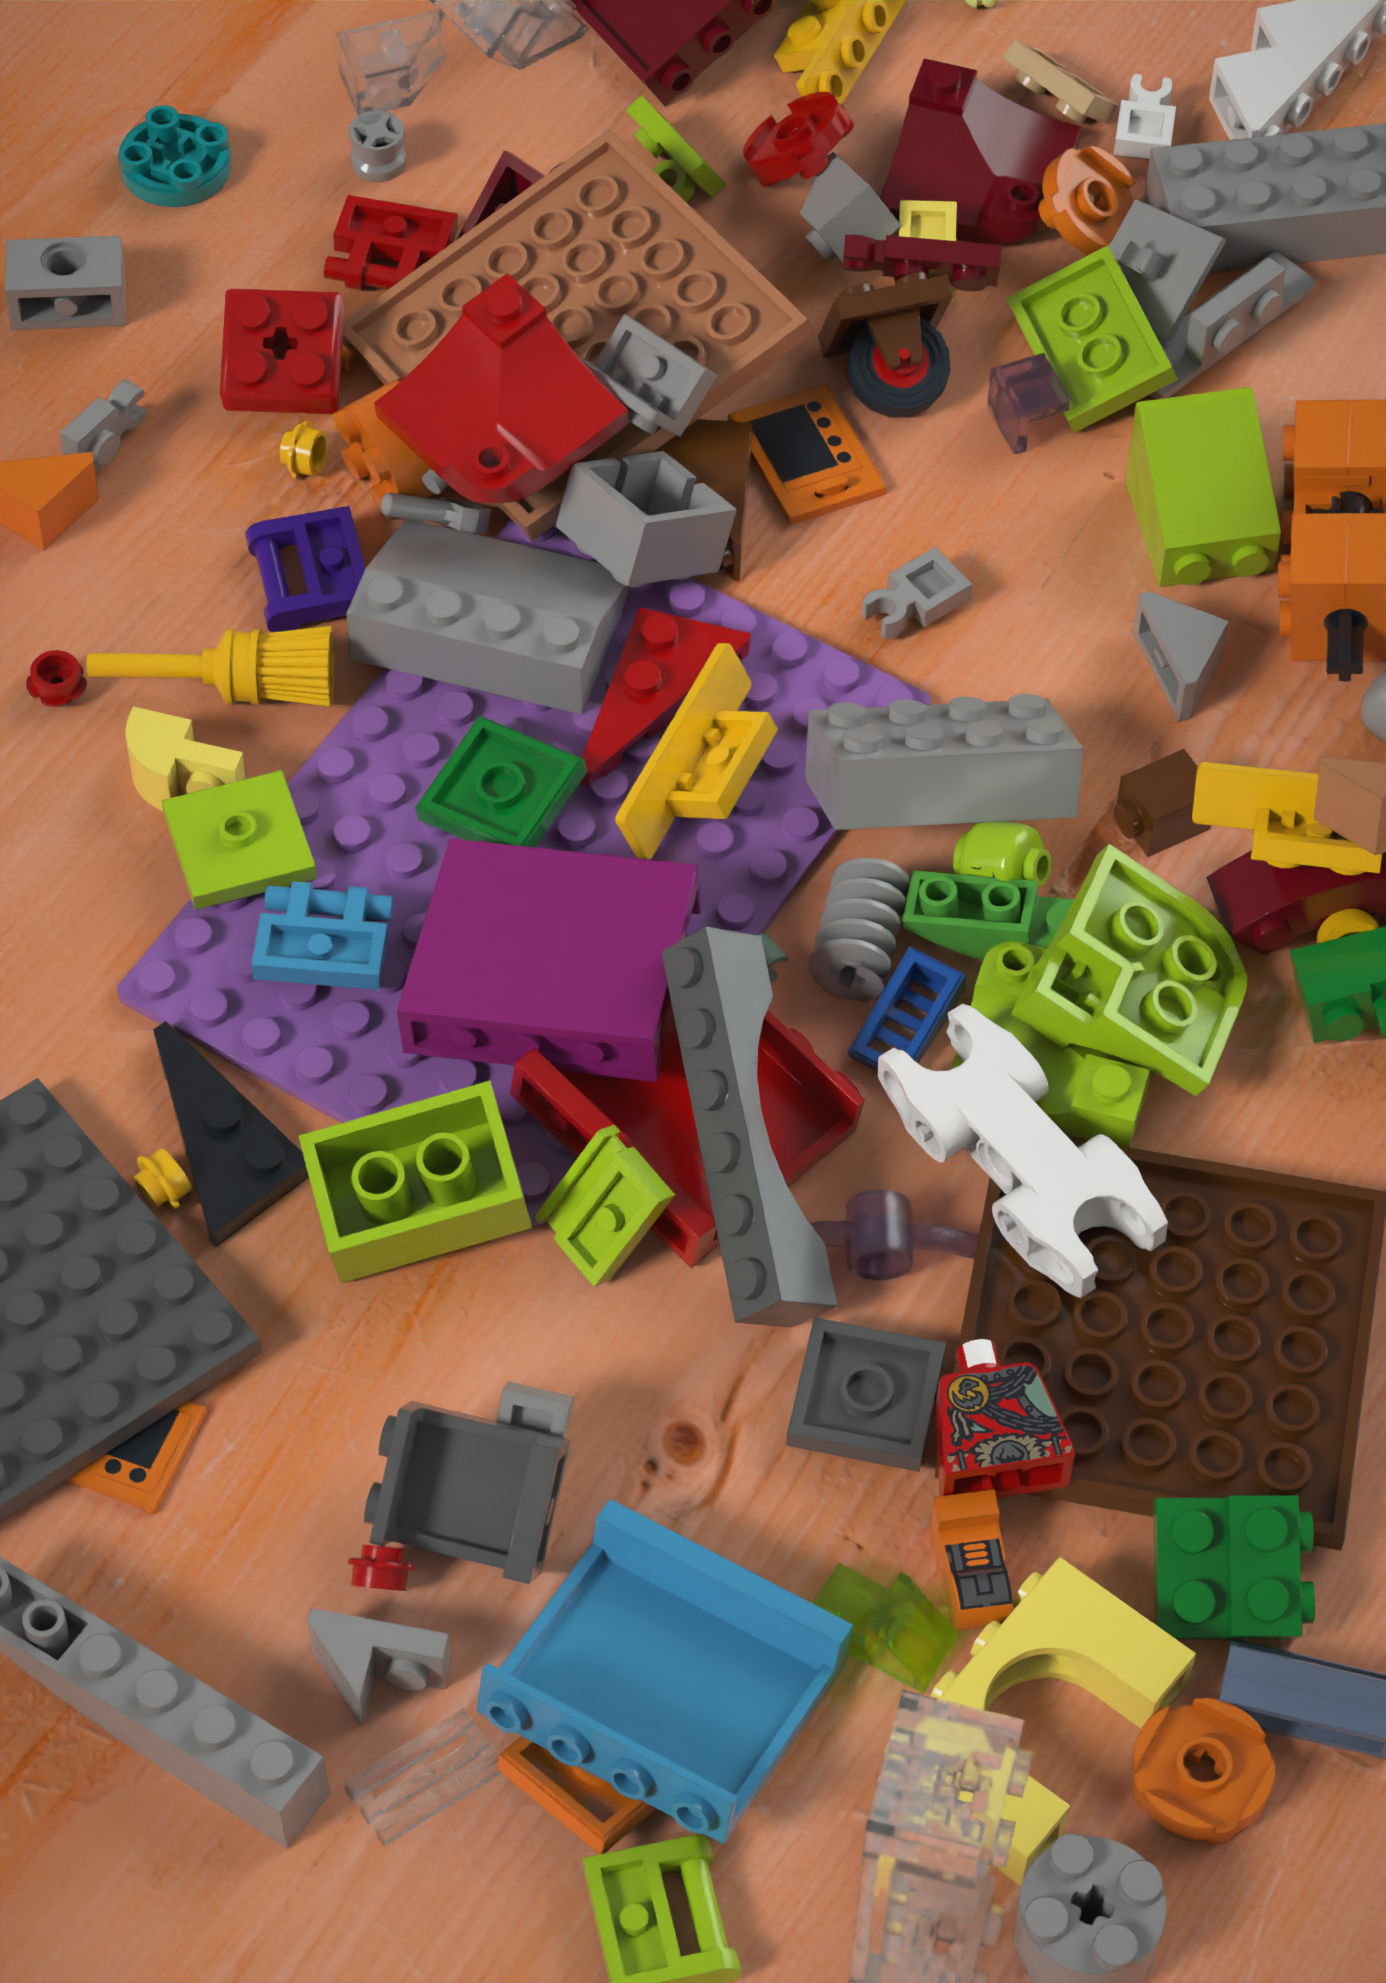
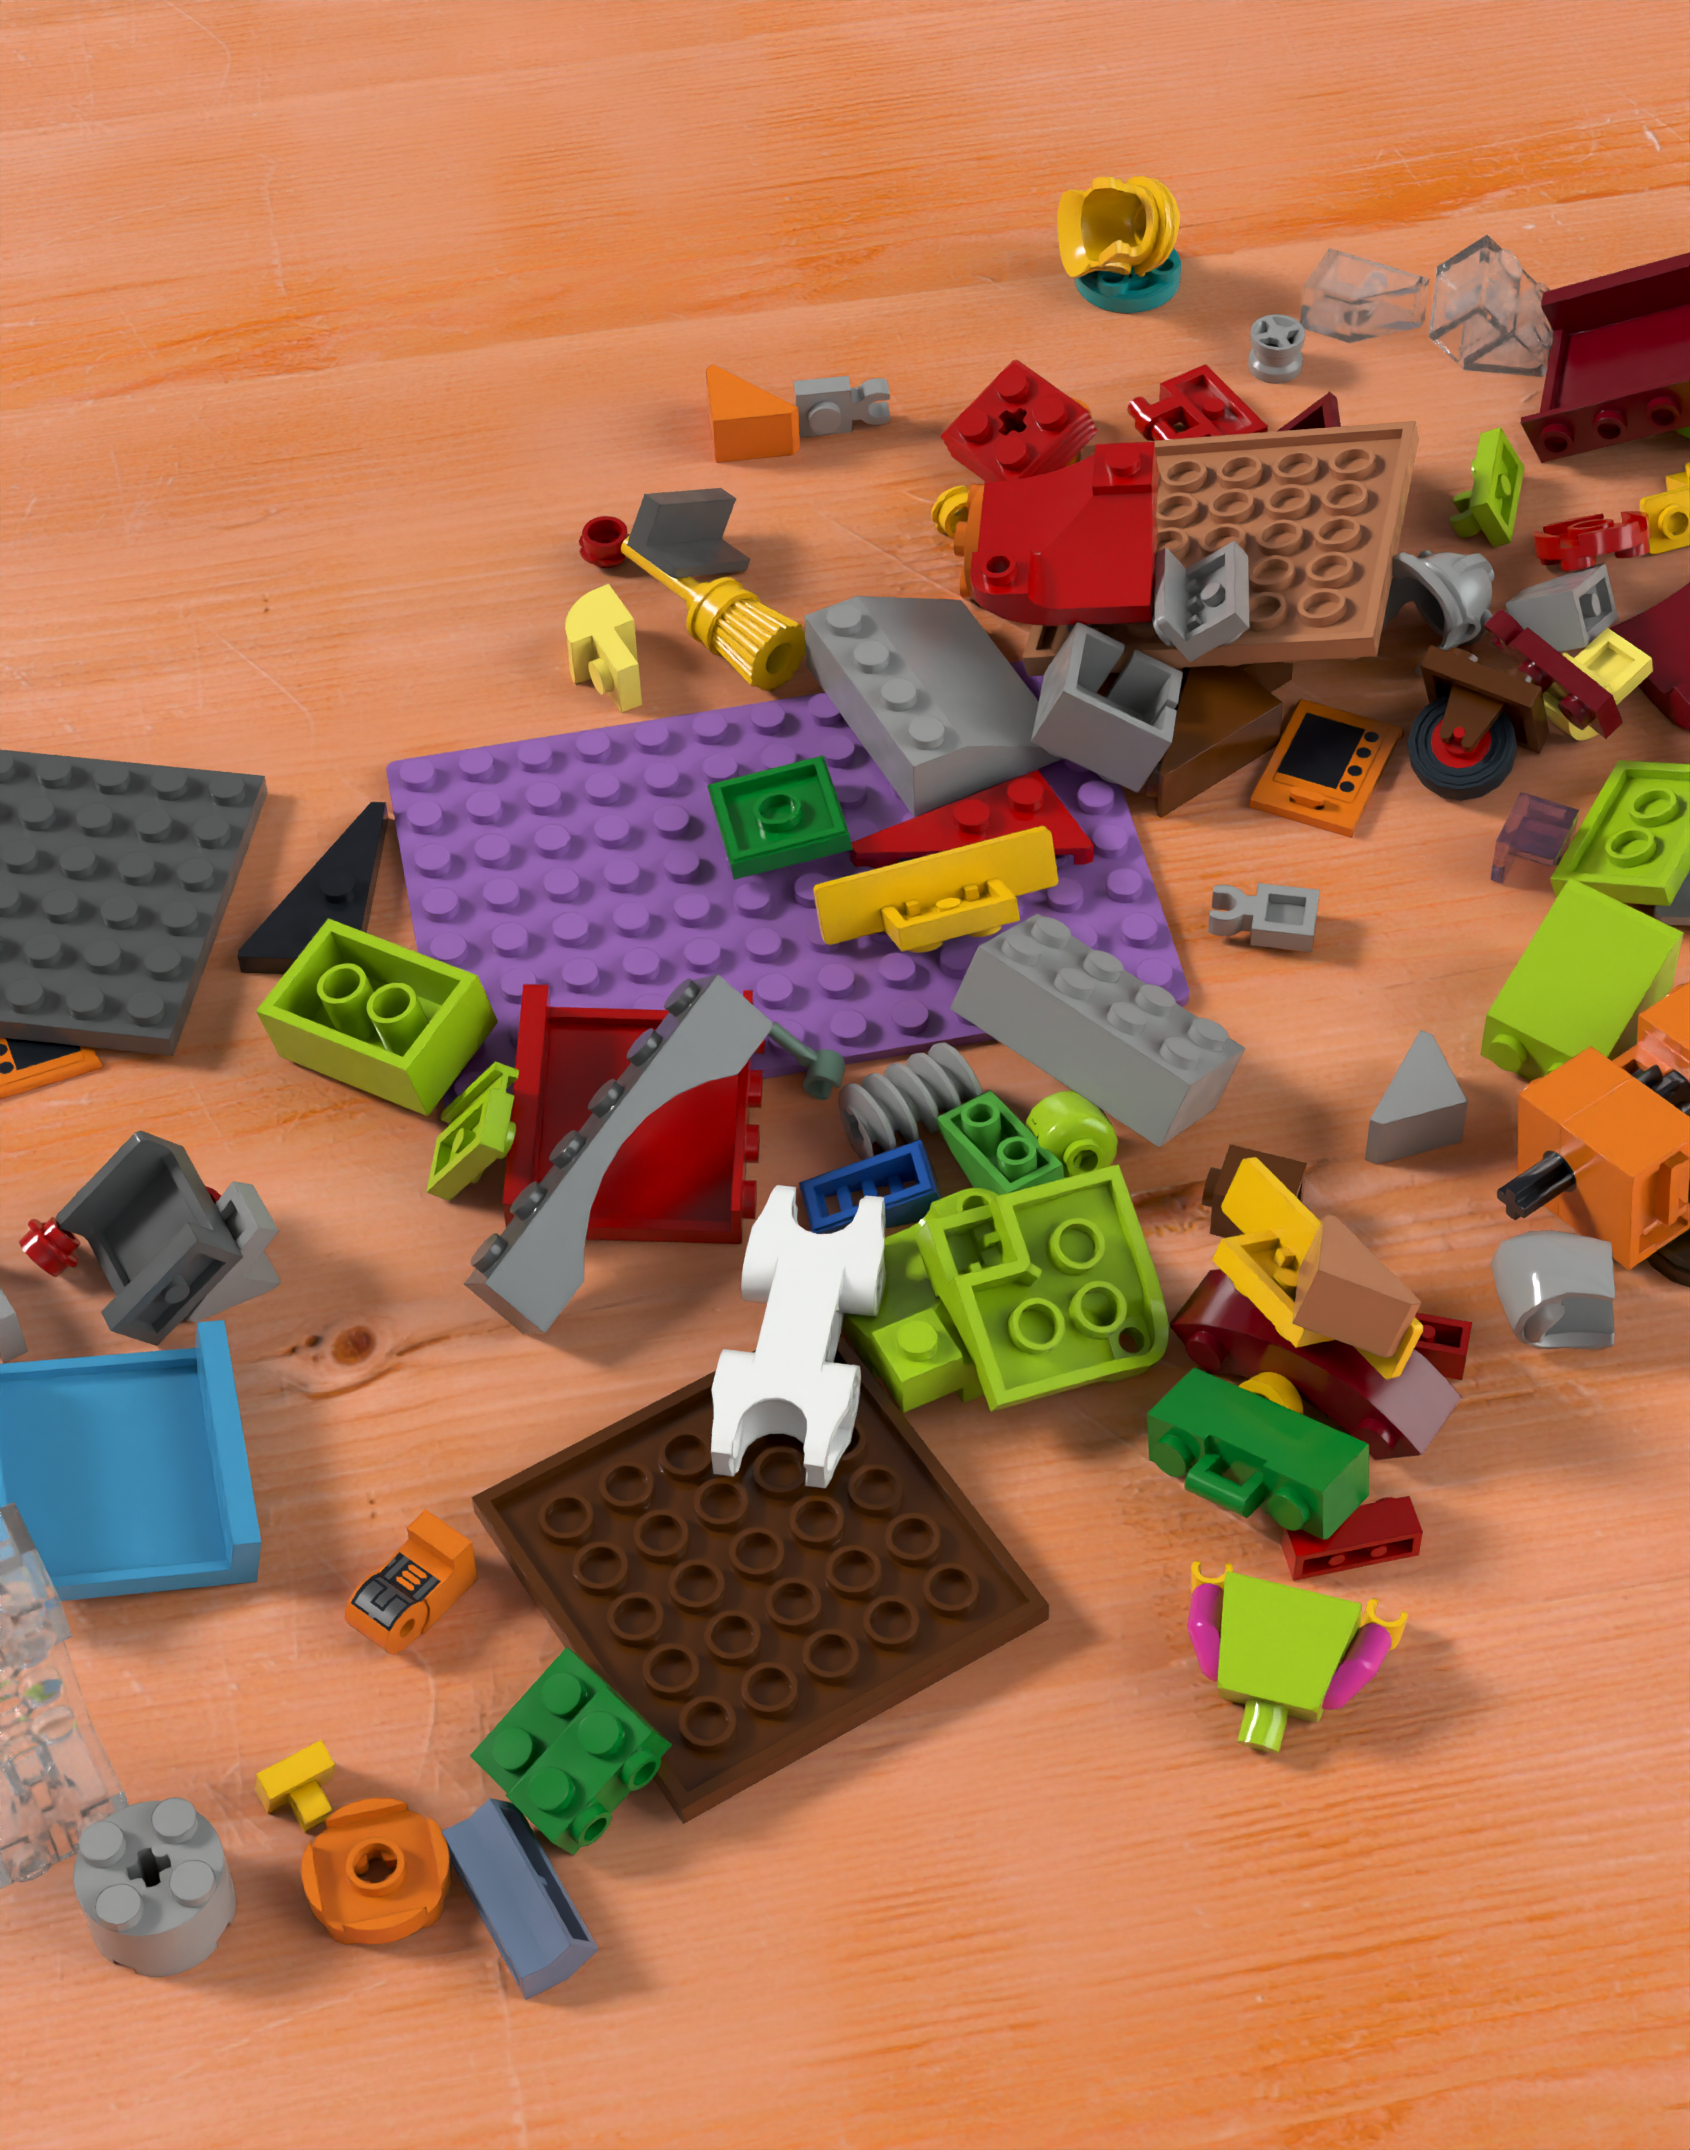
camera: 50 degrees right, 5 degrees down
(65, 282) = (939, 297): light grey brick -> none
(138, 633) = (685, 533): none -> dark grey panel
(161, 1179) = (252, 897): yellow plate -> none
(164, 124) = (1117, 226): none -> yellow helmet
(238, 839) = (574, 722): lime plate -> none
(322, 949) = (528, 831): dark azure plate -> none
(328, 561) = (882, 574): dark purple plate -> none
(445, 511) = (1006, 633): light grey bar -> none
(547, 958) = (634, 922): magenta panel -> none
(775, 250) = (1448, 591): none -> light grey helmet
(866, 1394) = (496, 1413): dark grey plate -> none
(883, 1237) = (646, 1317): piece -> none
(892, 1627) = (305, 1576): clear neon green slope -> none
(998, 1428) = (522, 1500): torso -> none
(1075, 1634) = (227, 1690): light yellow arch -> none
(1081, 1763) = (298, 1782): none -> yellow tile

